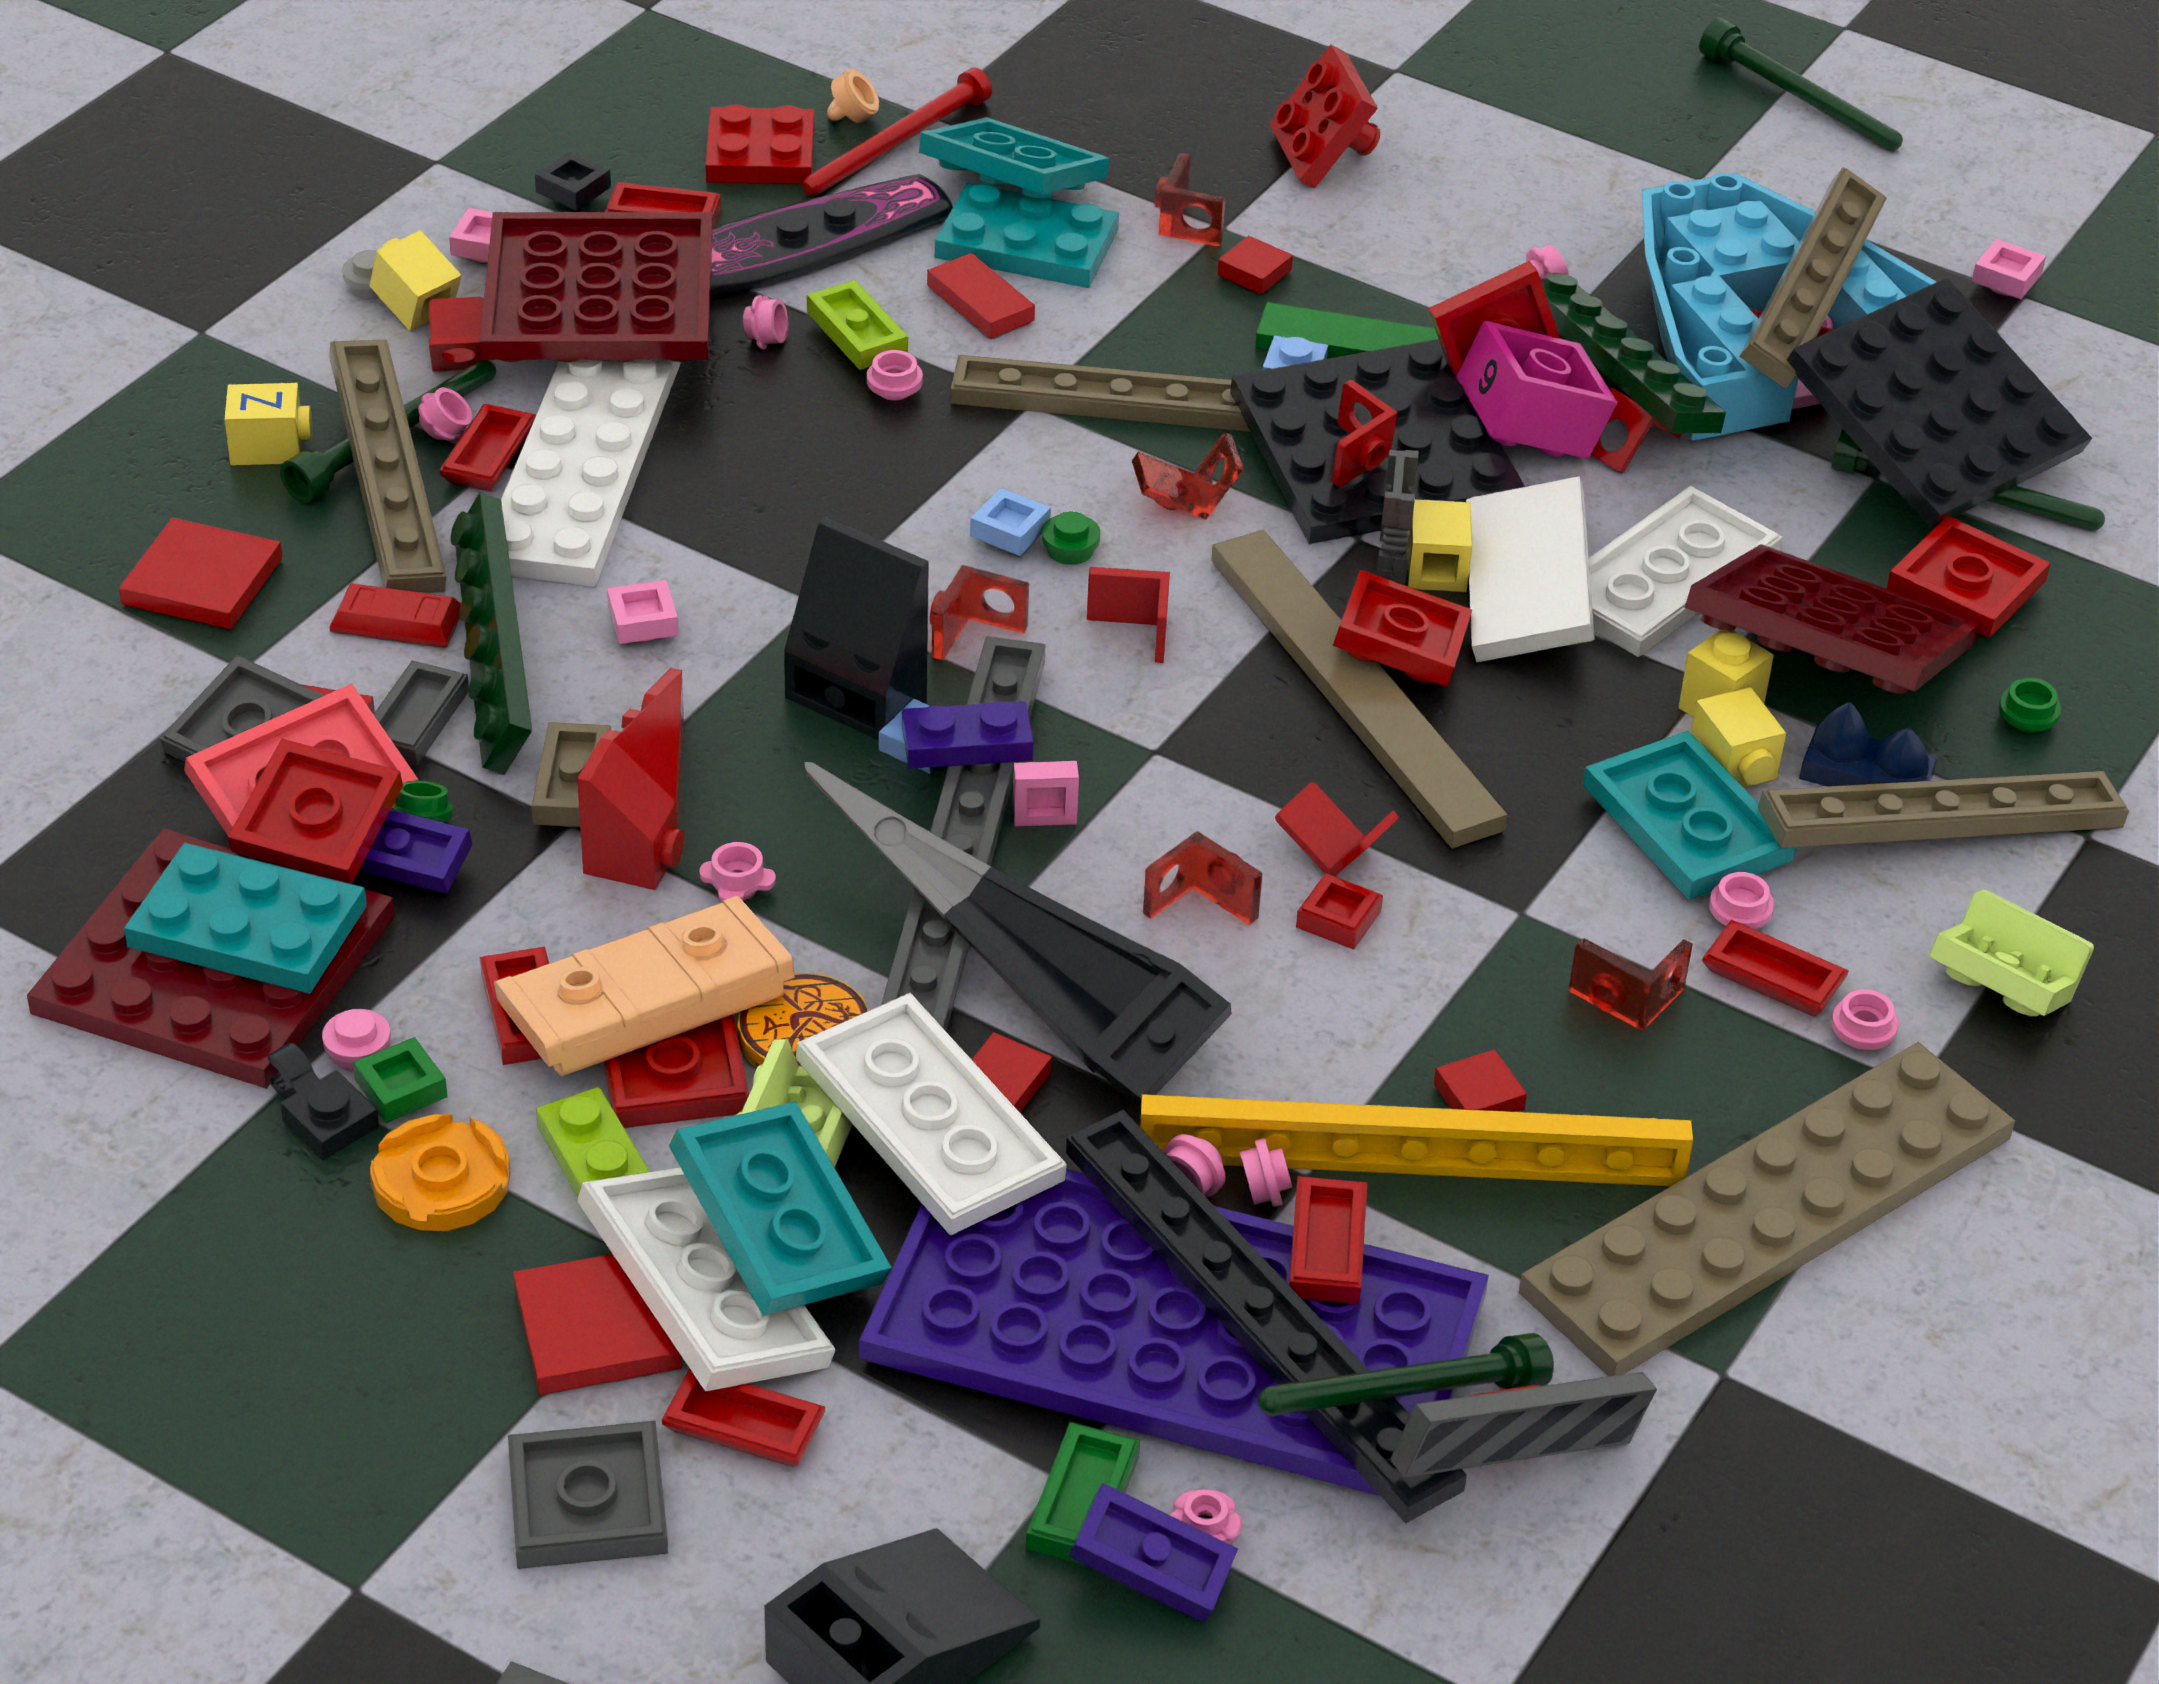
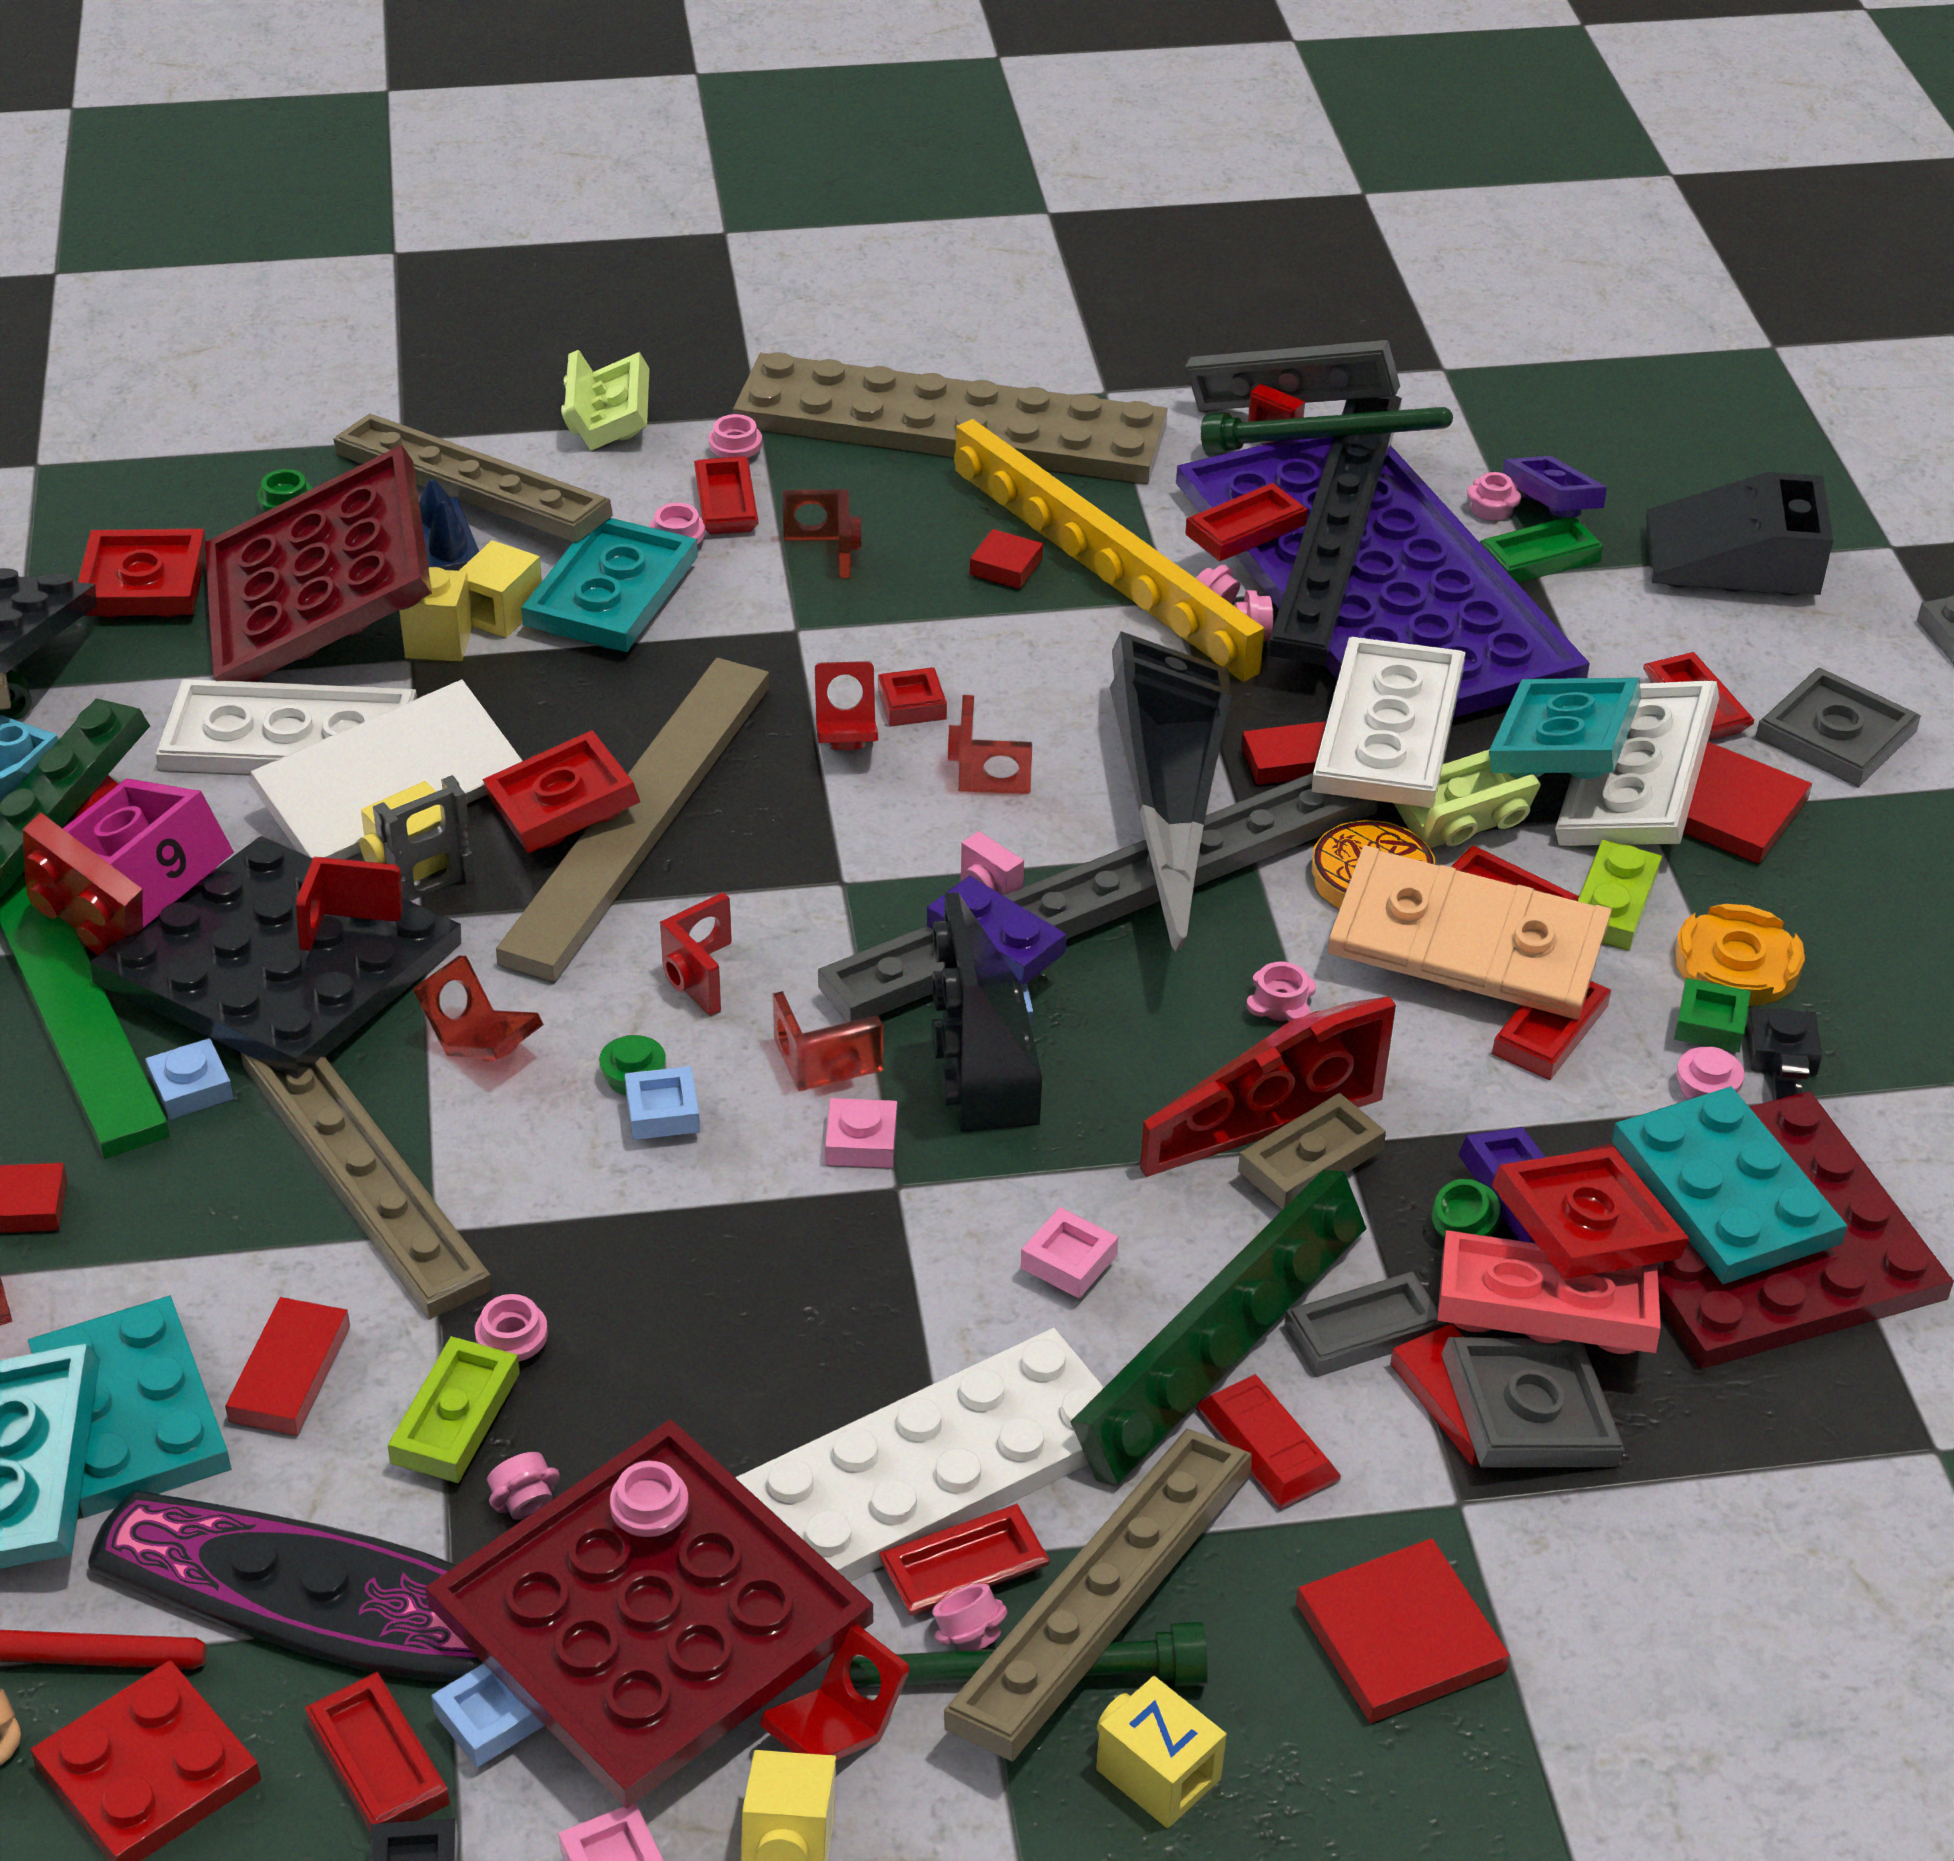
camera: 130 degrees left, 0 degrees up
(649, 286) = (649, 1499): none -> bright pink plate

